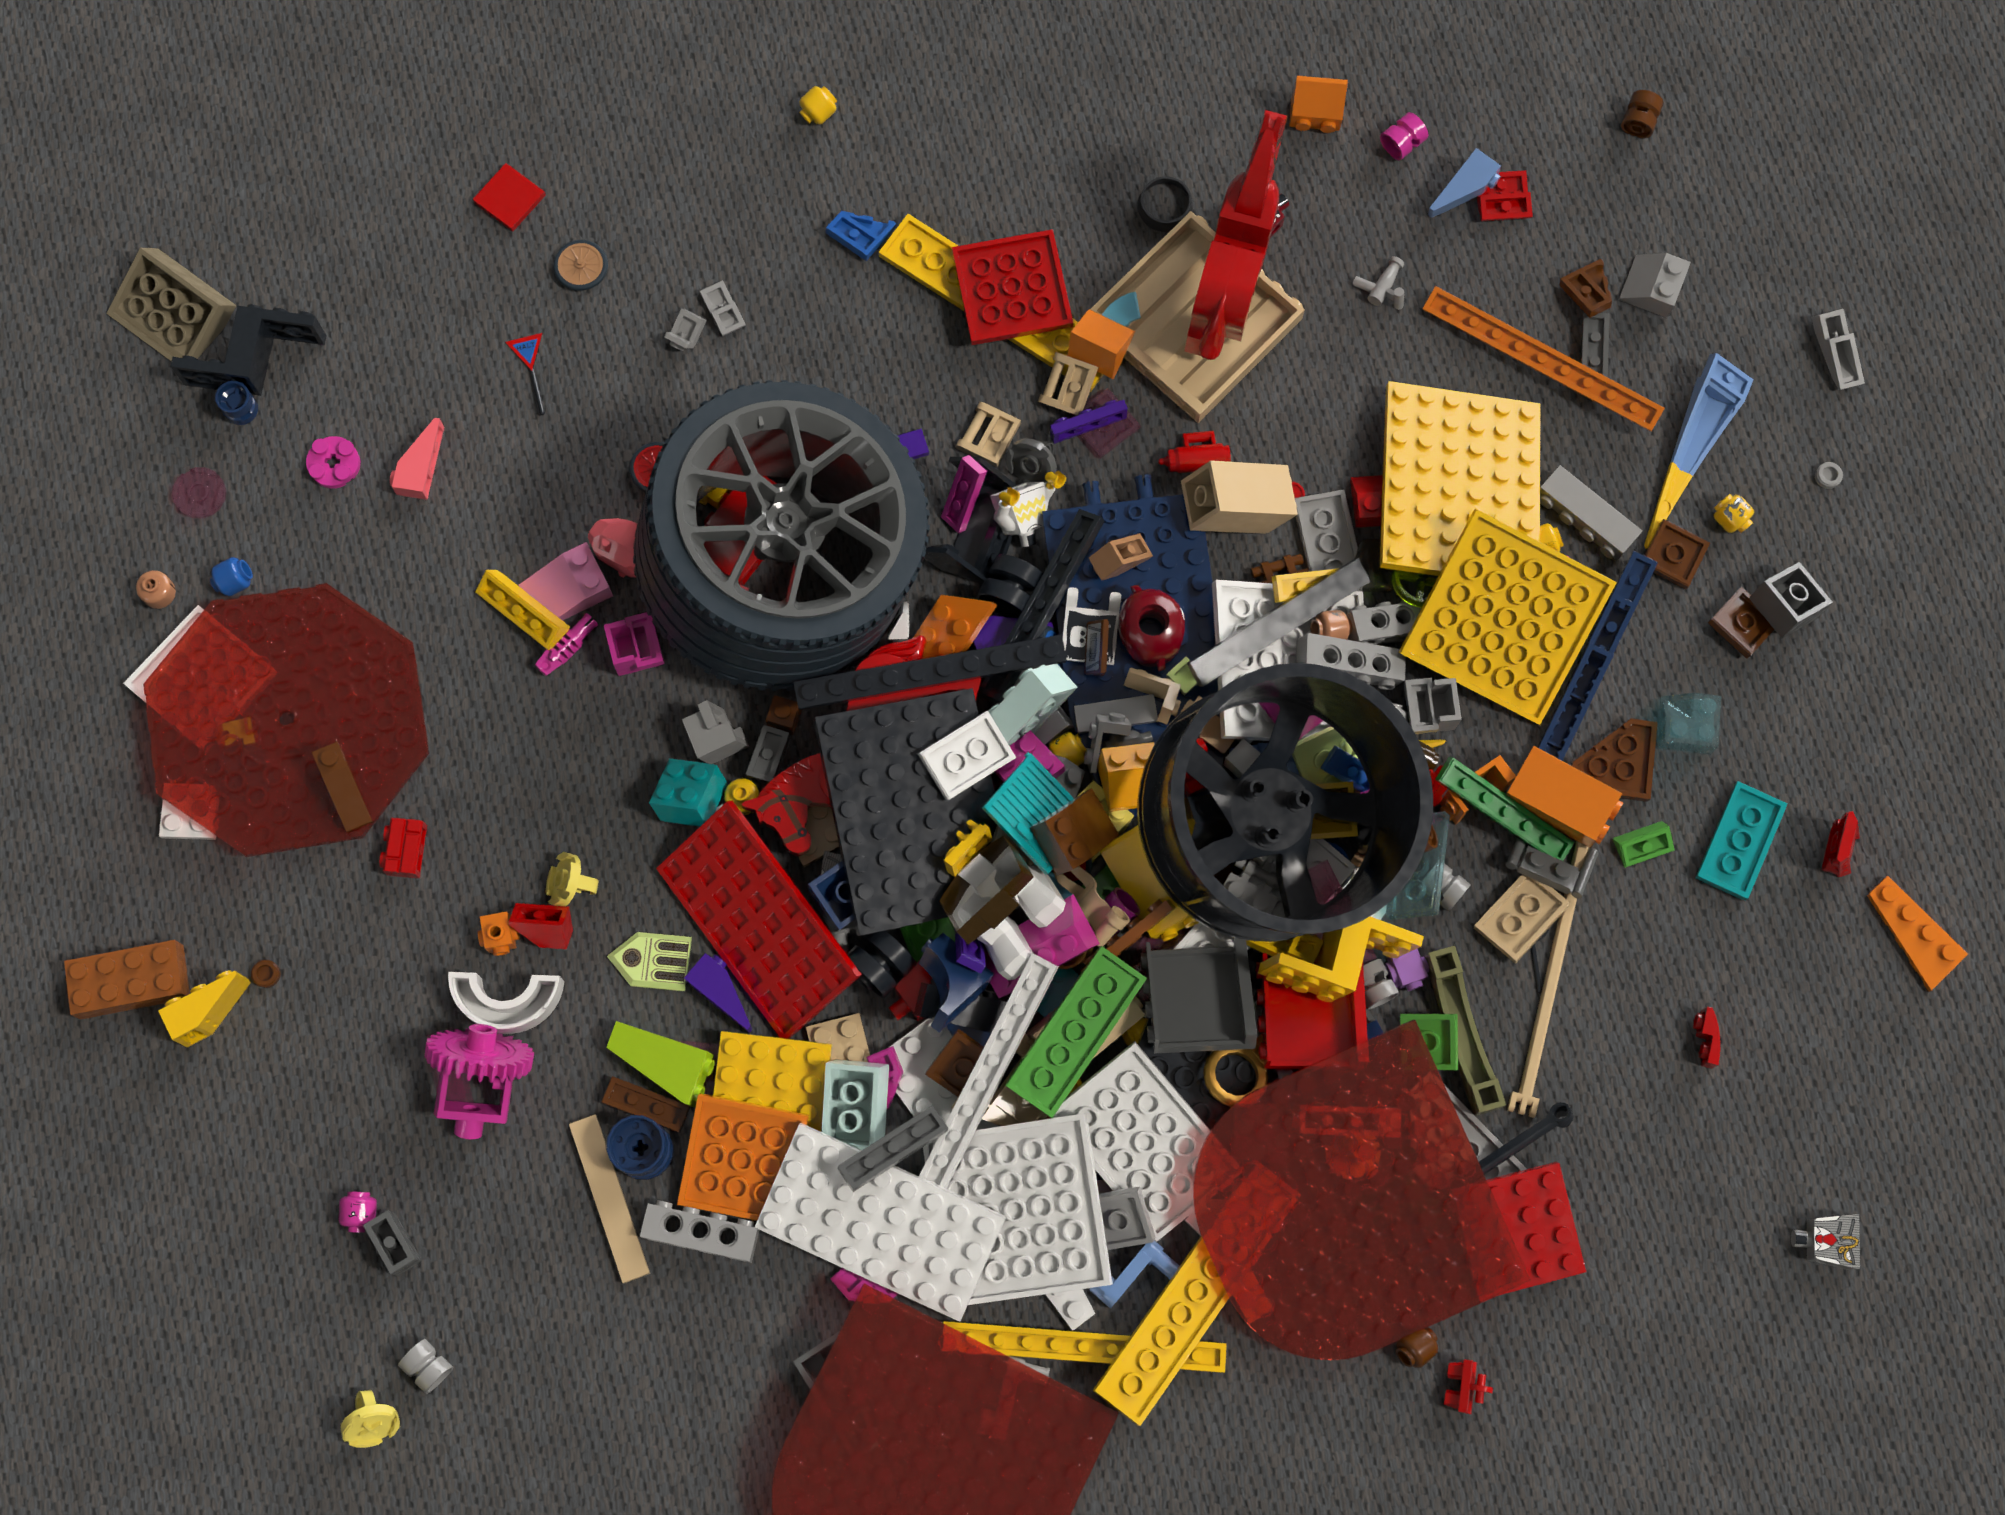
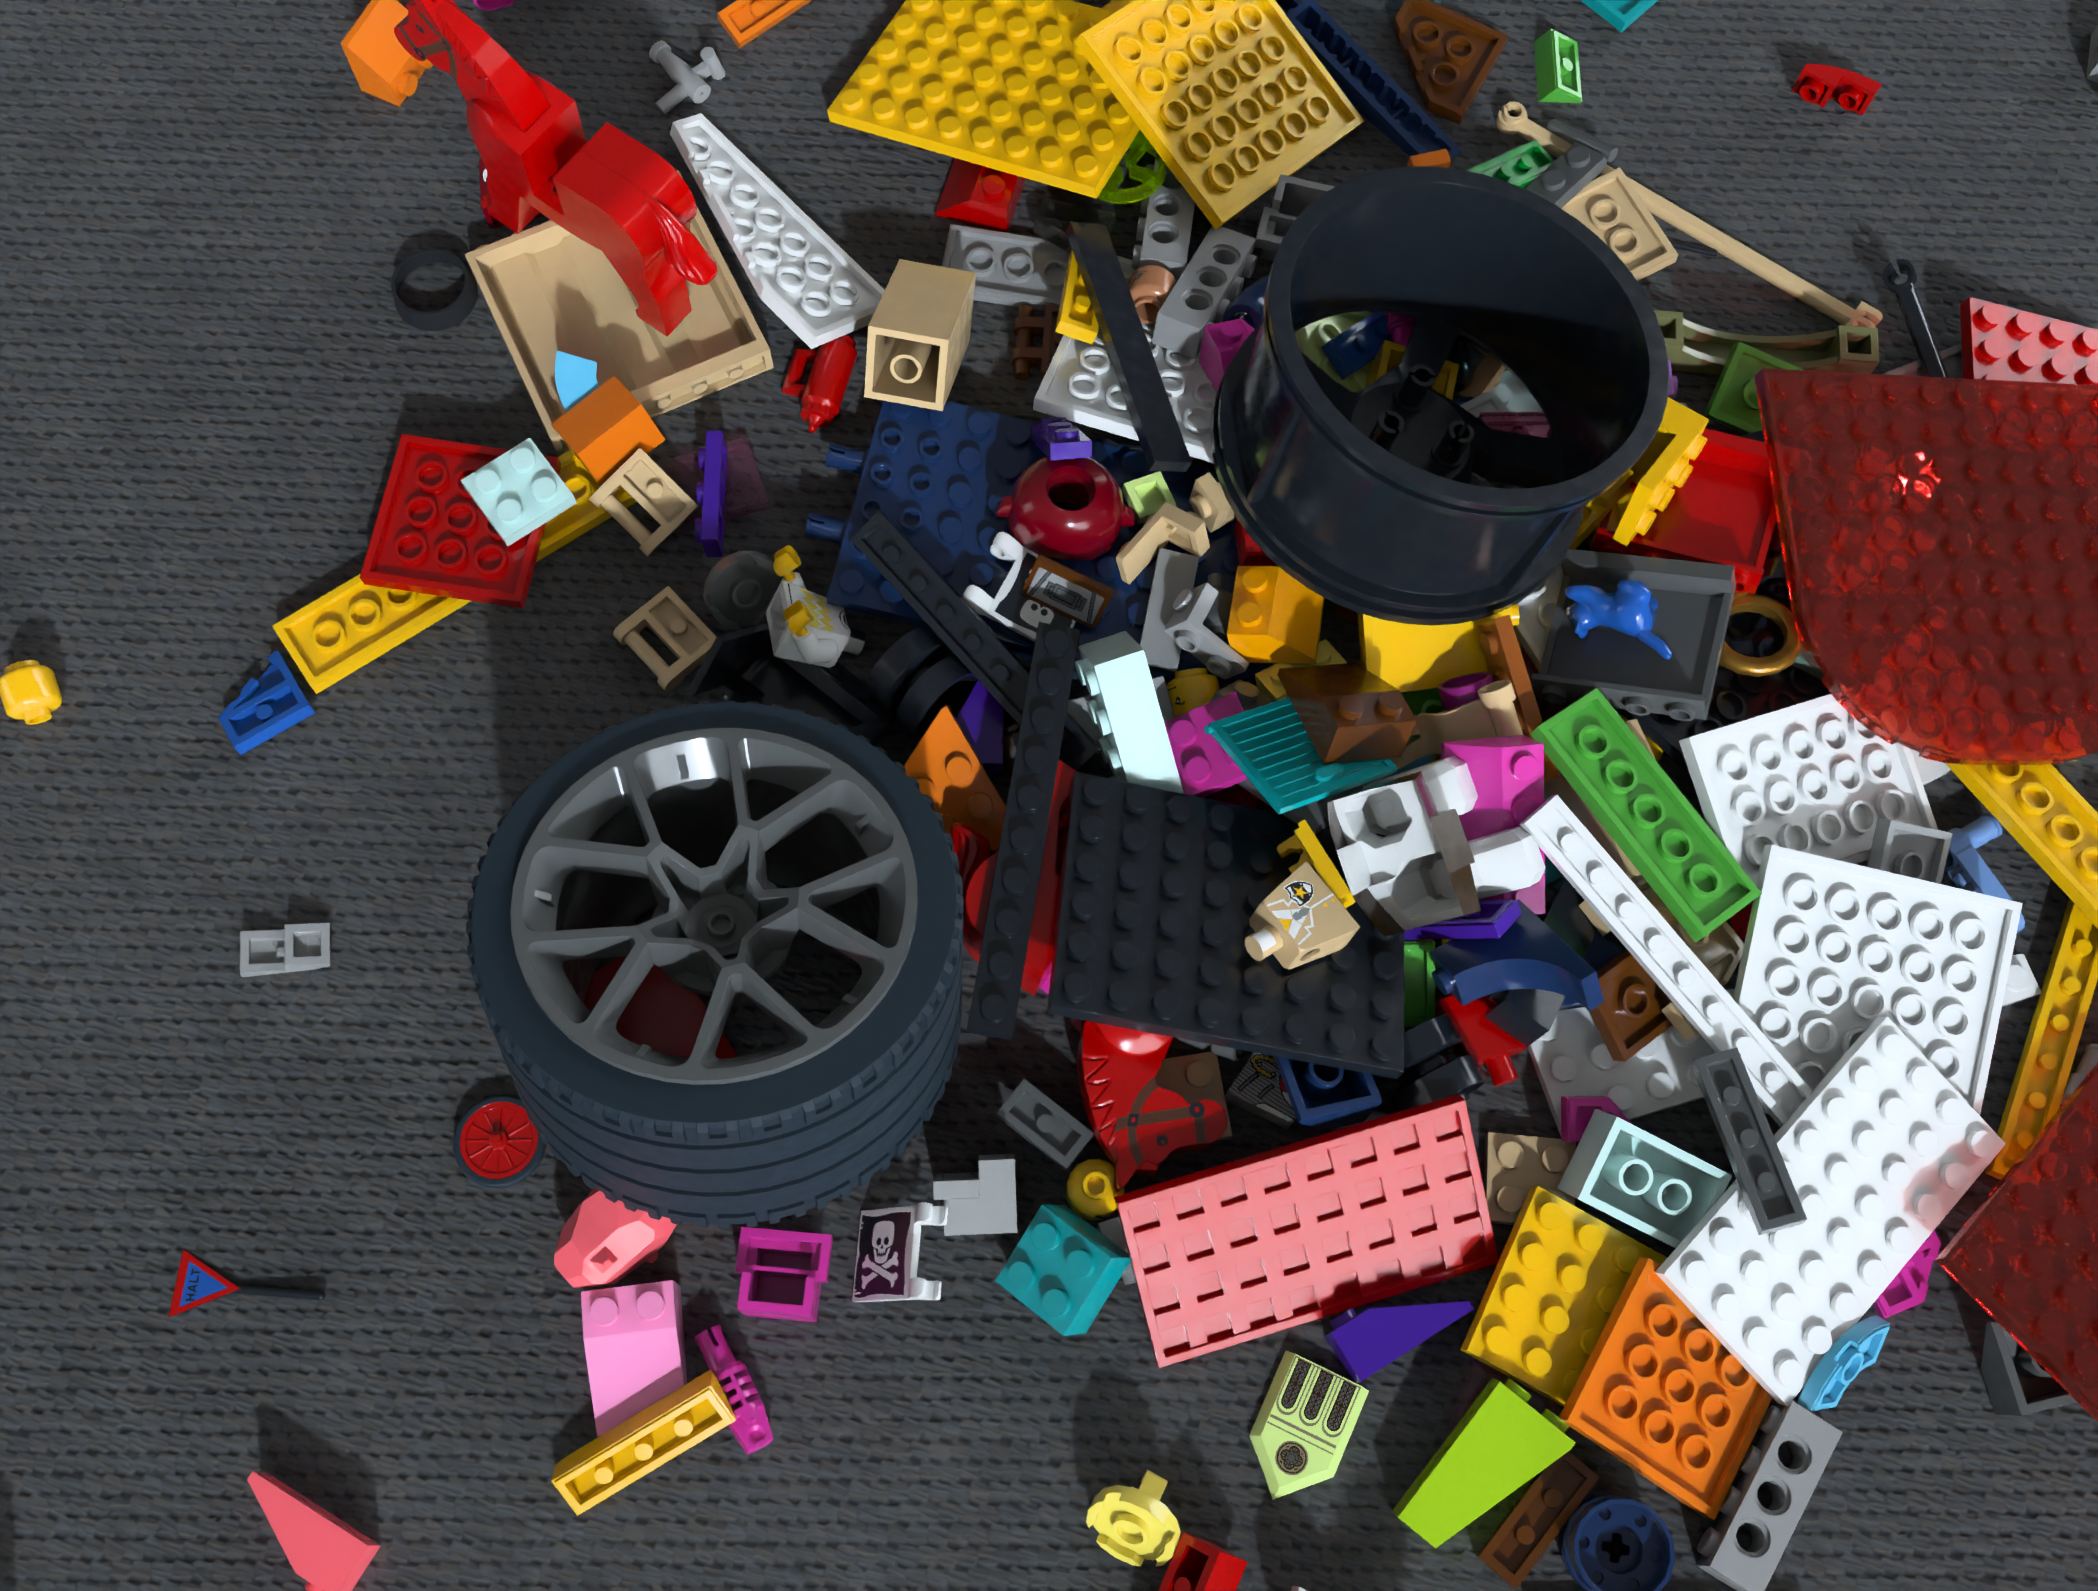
camera: 70 degrees left, 5 degrees down
(580, 265) = (100, 1146): medium nougat wheel -> none
(665, 697) = (890, 1254): none -> flag
(686, 330) = (294, 1015): light grey bracket -> none
(783, 714) = (986, 1080): reddish brown brick -> none
(792, 1255) = (1843, 1362): none -> medium azure tile
(923, 843) = (1299, 921): none -> tan torso
(963, 494) = (744, 673): dark pink plate -> none
(967, 755) = (1178, 815): white tile -> none
(1039, 310) = (518, 491): none -> light aqua plate
(1120, 556) = (945, 514): medium nougat slope -> none
(1189, 604) = (1060, 439): none -> dark purple plate
(1210, 983) = (1626, 610): none -> blue animal
(1272, 400) = (781, 248): none -> white wing
(1565, 797) = (1490, 106): orange brick -> none

